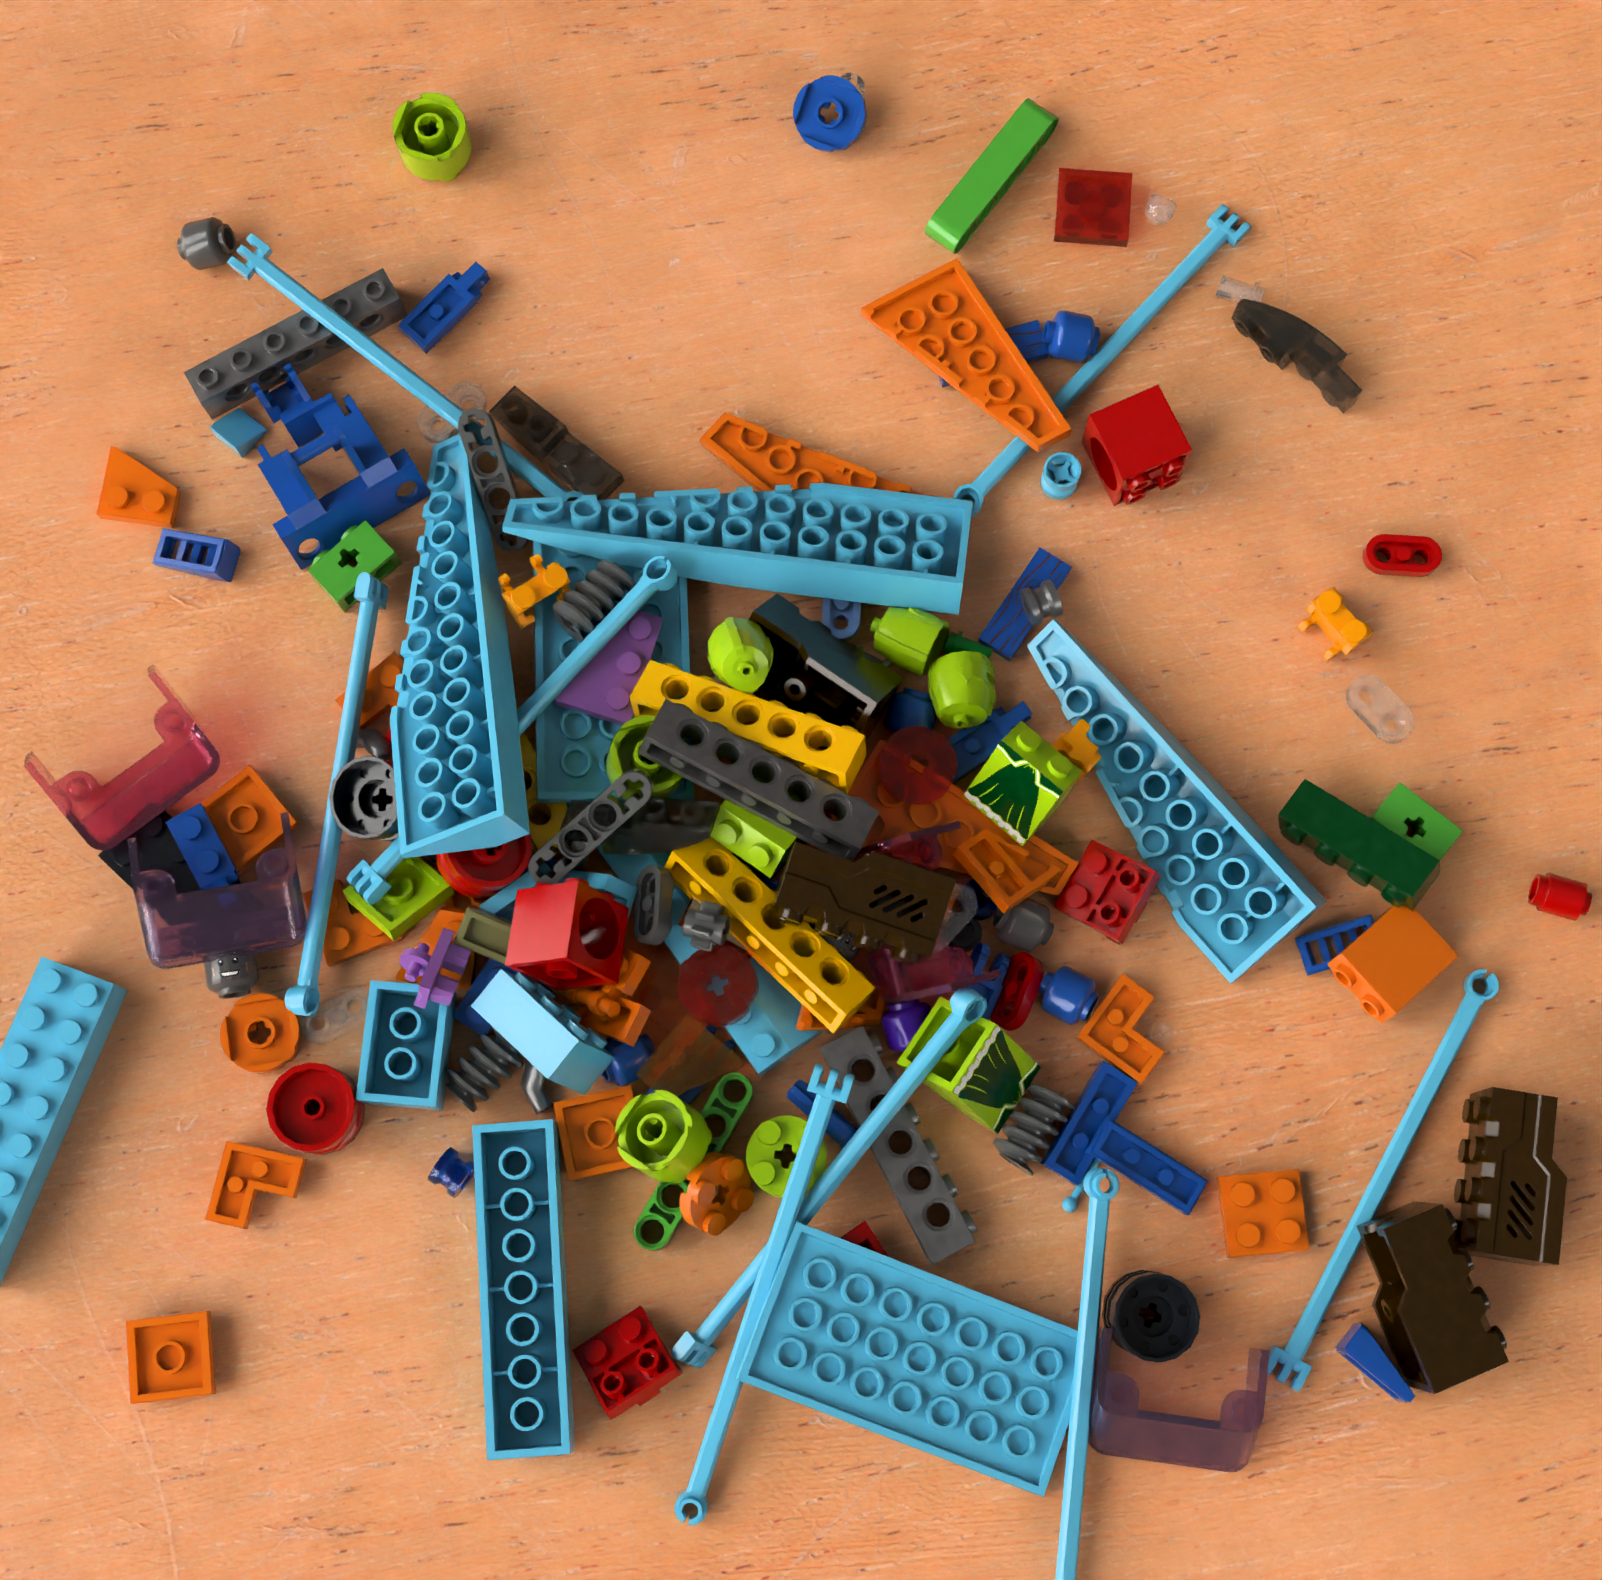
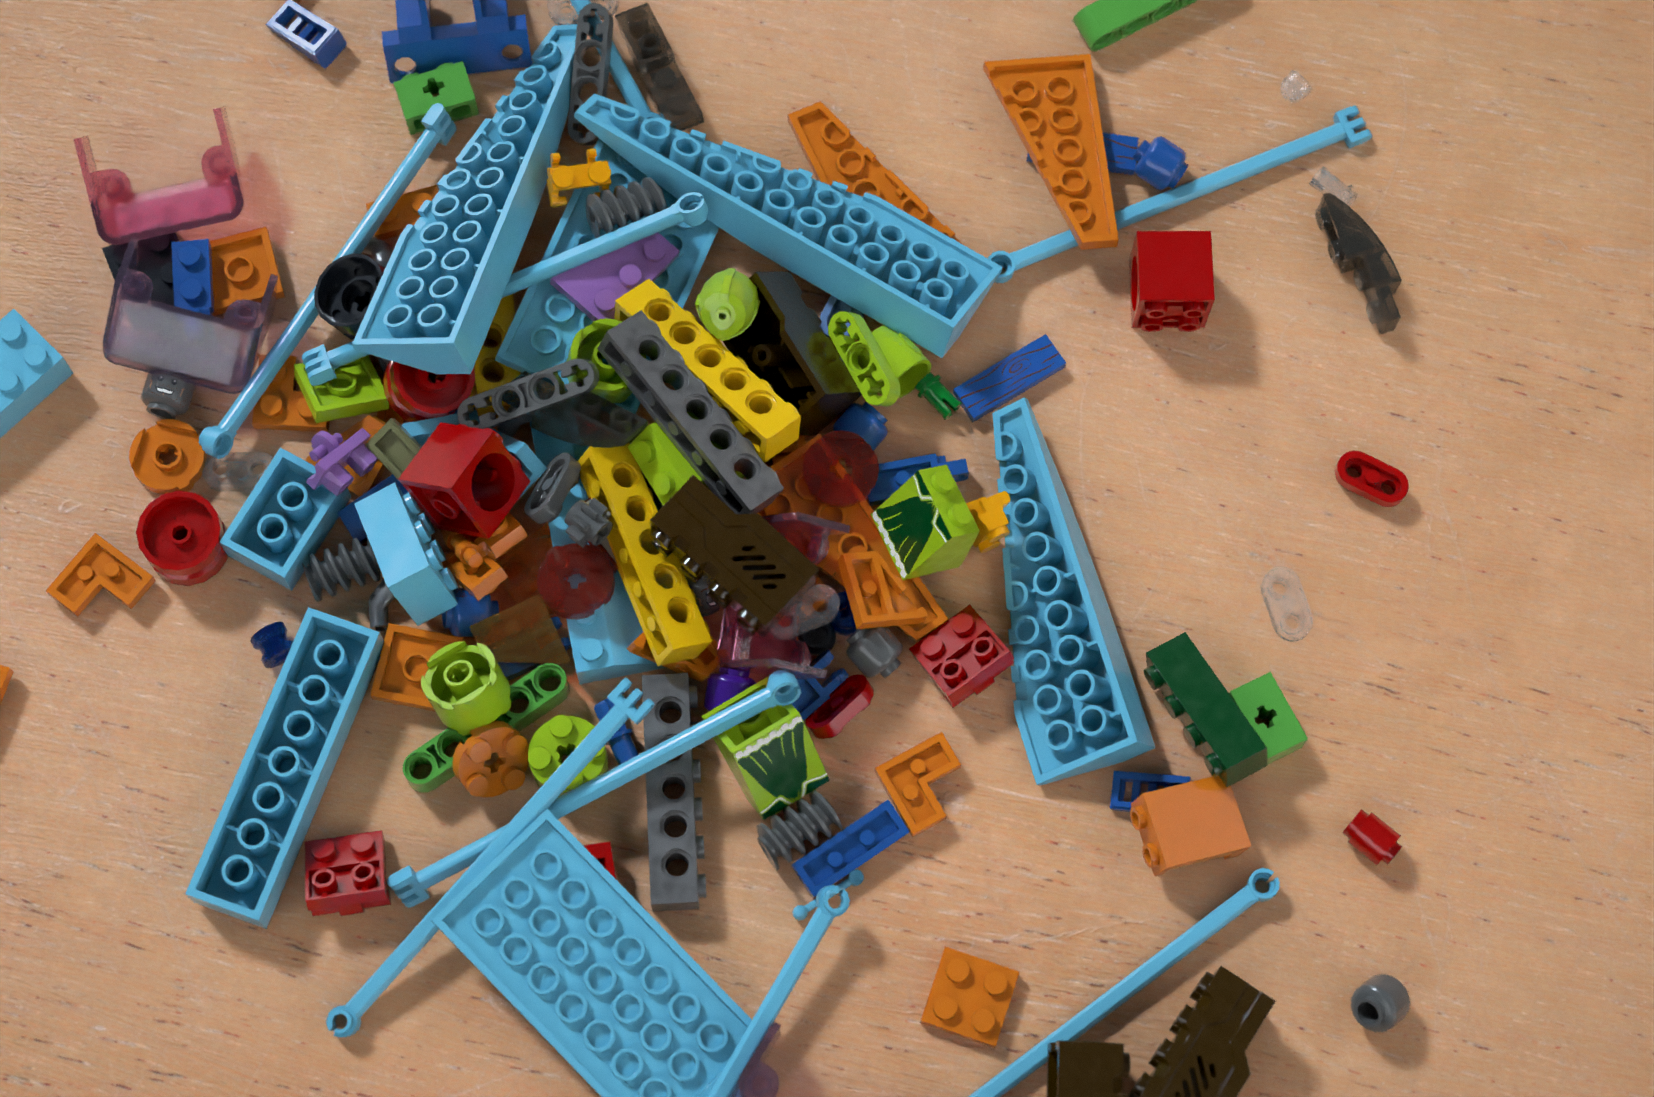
camera: 20 degrees right, 5 degrees down
(905, 646) = (878, 365): none -> lime beam
(962, 688) = (916, 423): lime helmet -> none
(1041, 602) = (1021, 379): flat silver wheel -> none
(1063, 468) = (1096, 272): medium azure wheel -> none
(1068, 995) = (884, 729): blue head -> none
(1093, 207) = (1234, 60): clear red plate -> none
(1146, 1166) = (883, 908): blue tile -> none
(1174, 1320) = (821, 1010): black wheel -> none
(1336, 623) = (1283, 512): light orange piece -> none

